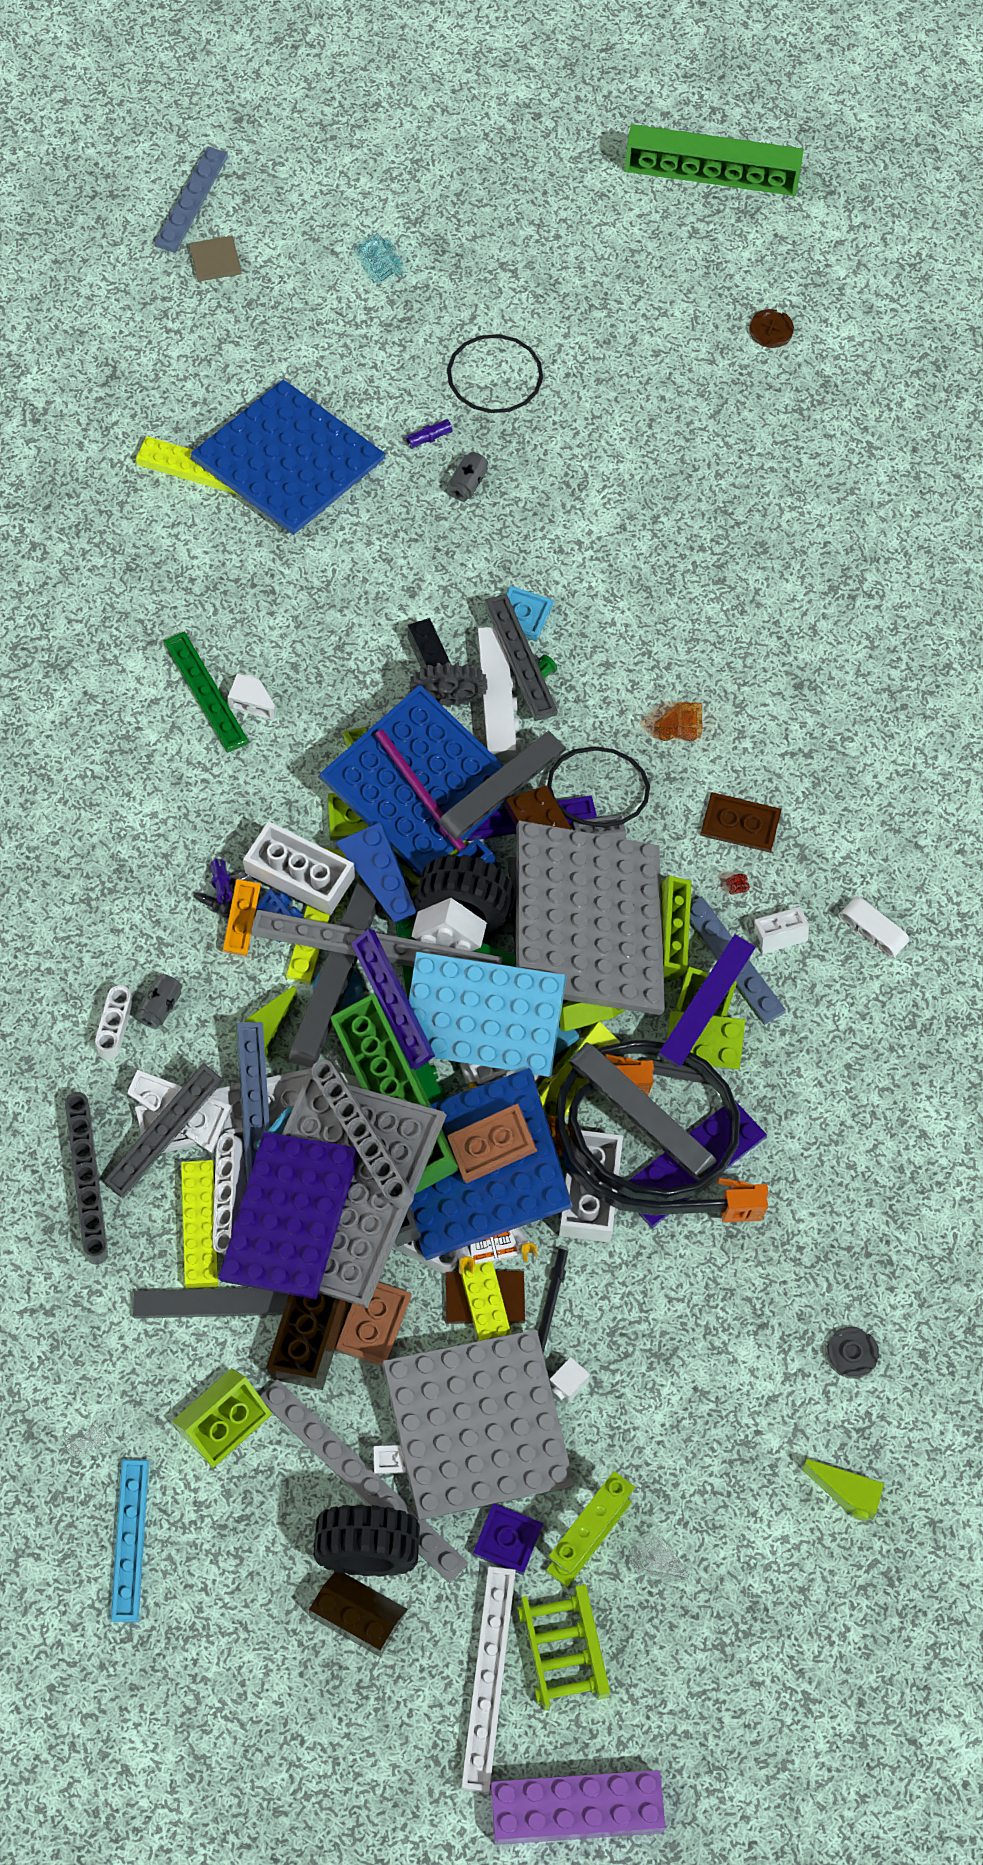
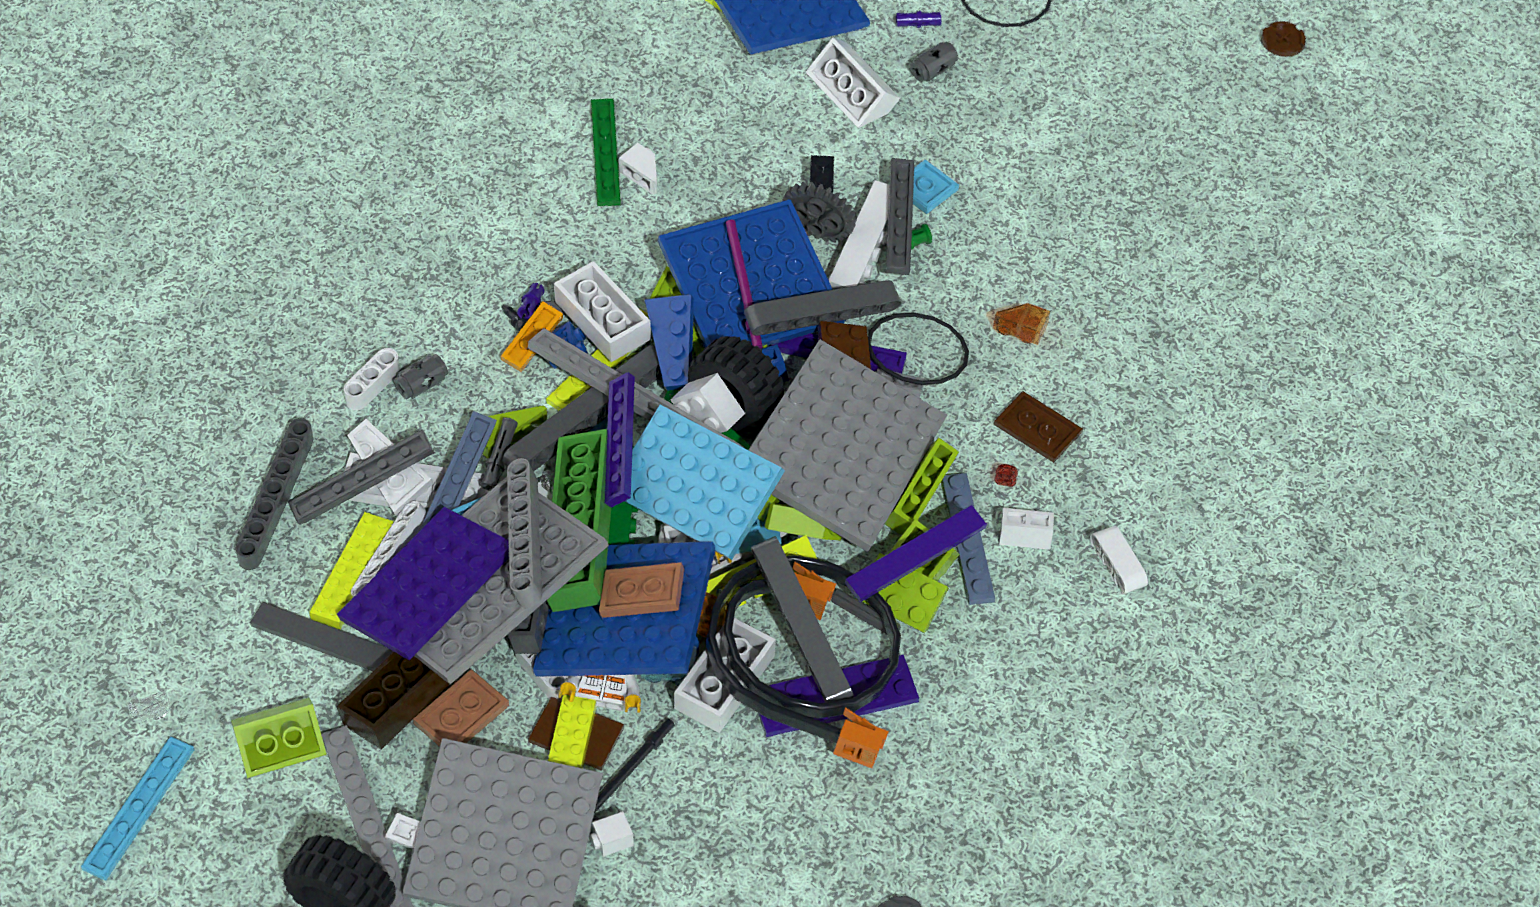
camera: 25 degrees right, 10 degrees down
(283, 1082) = (495, 462): none -> dark grey pin
(402, 529) = (852, 83): none -> white slope

